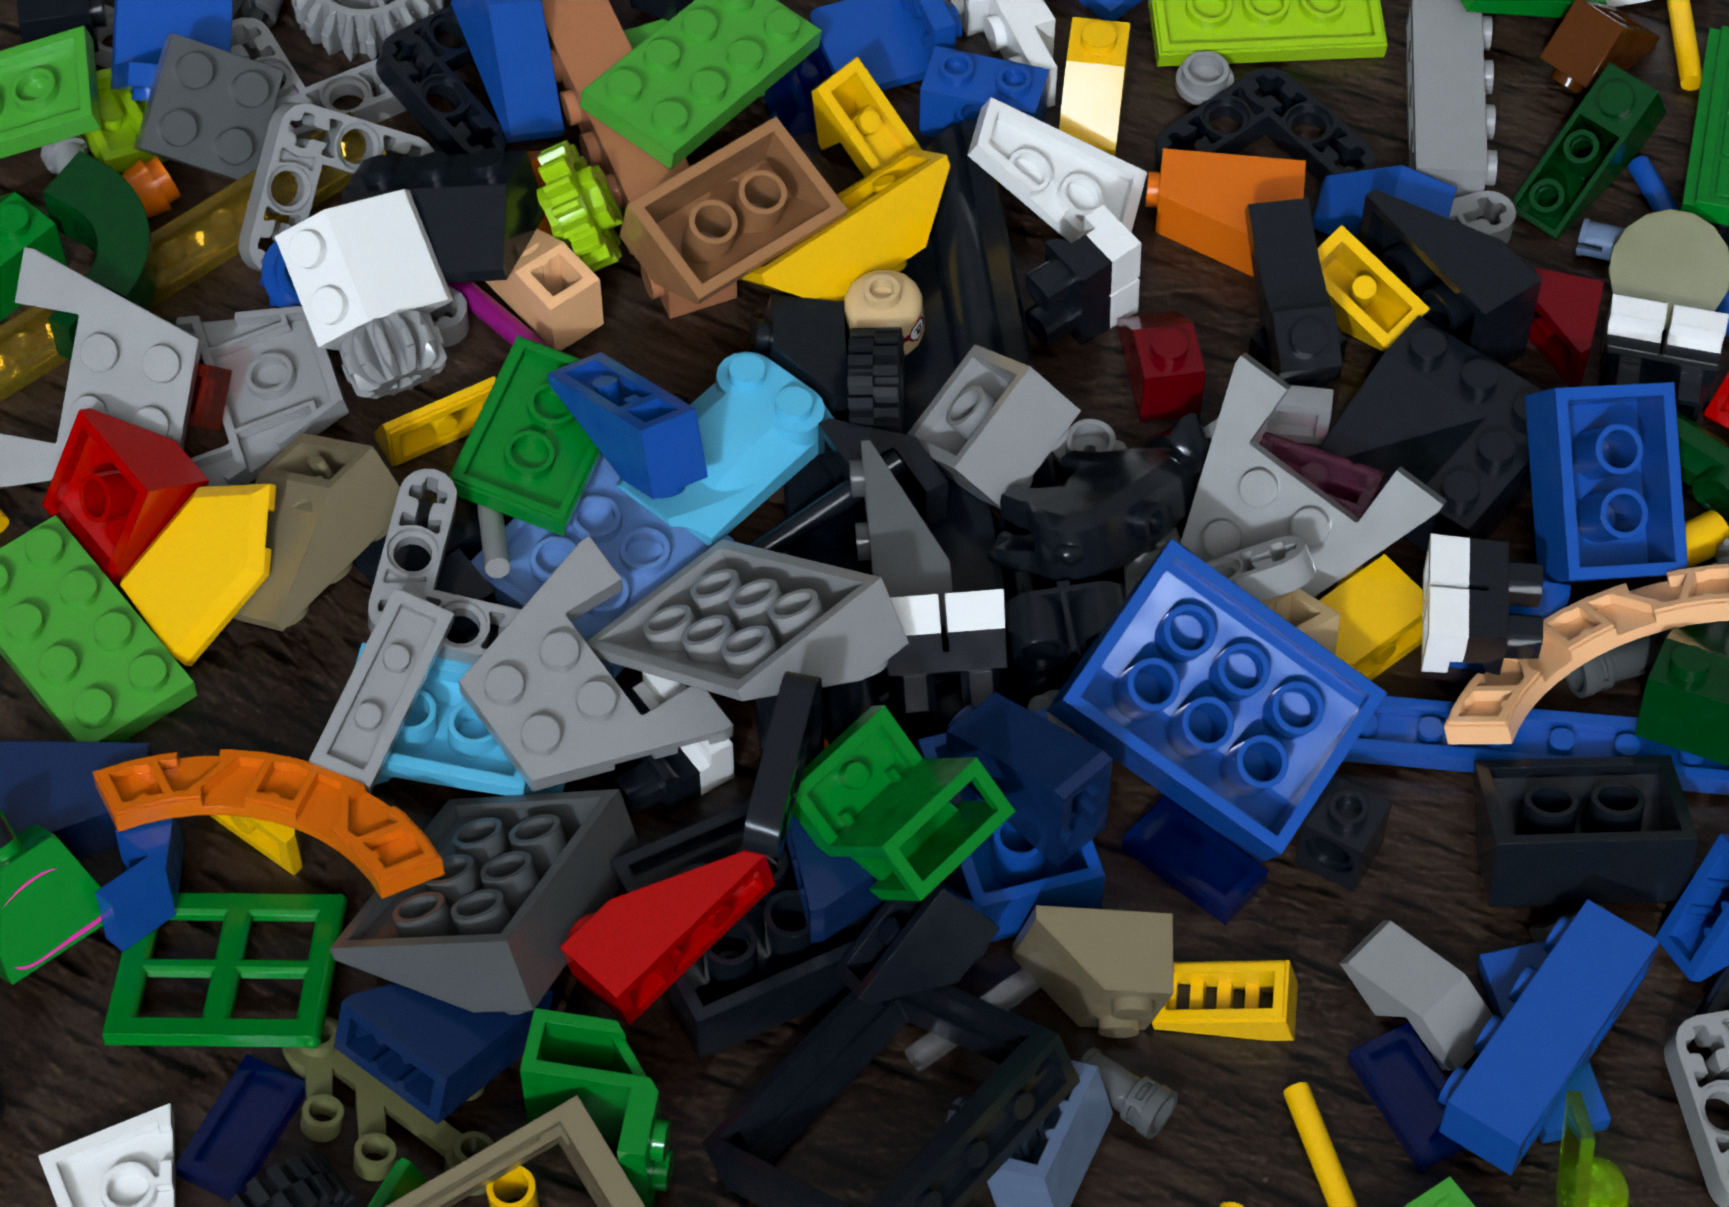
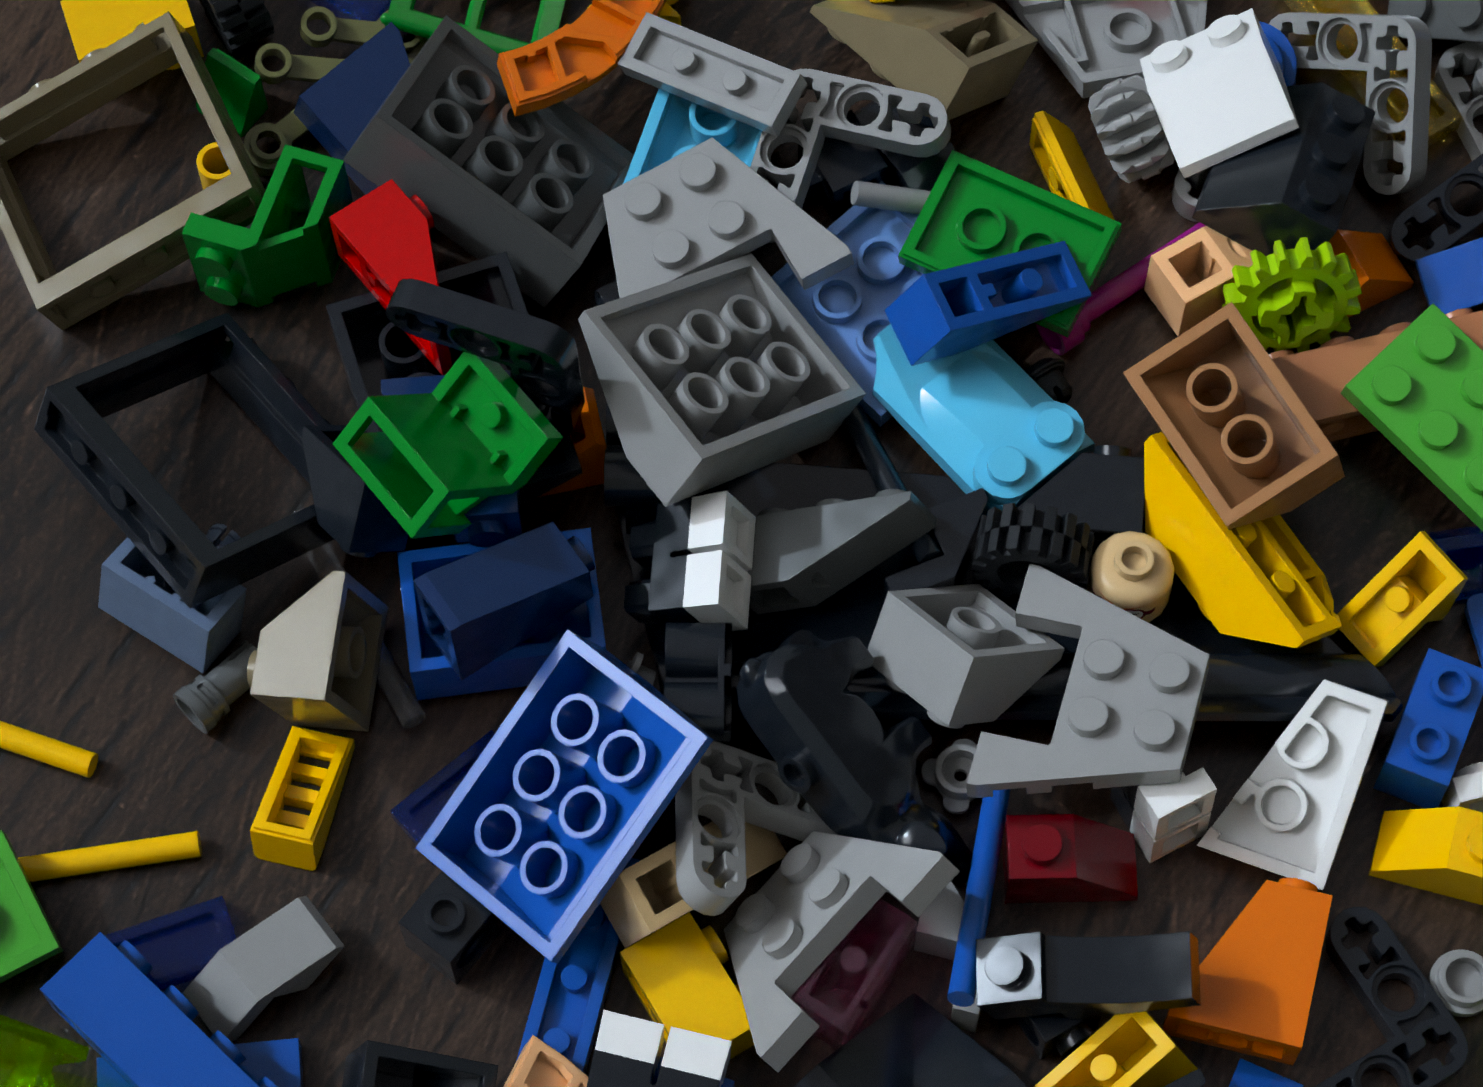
camera: 100 degrees right, 10 degrees up
(1031, 276) = (1123, 707): none -> light grey wing
(1204, 397) = (978, 897): none -> blue bar

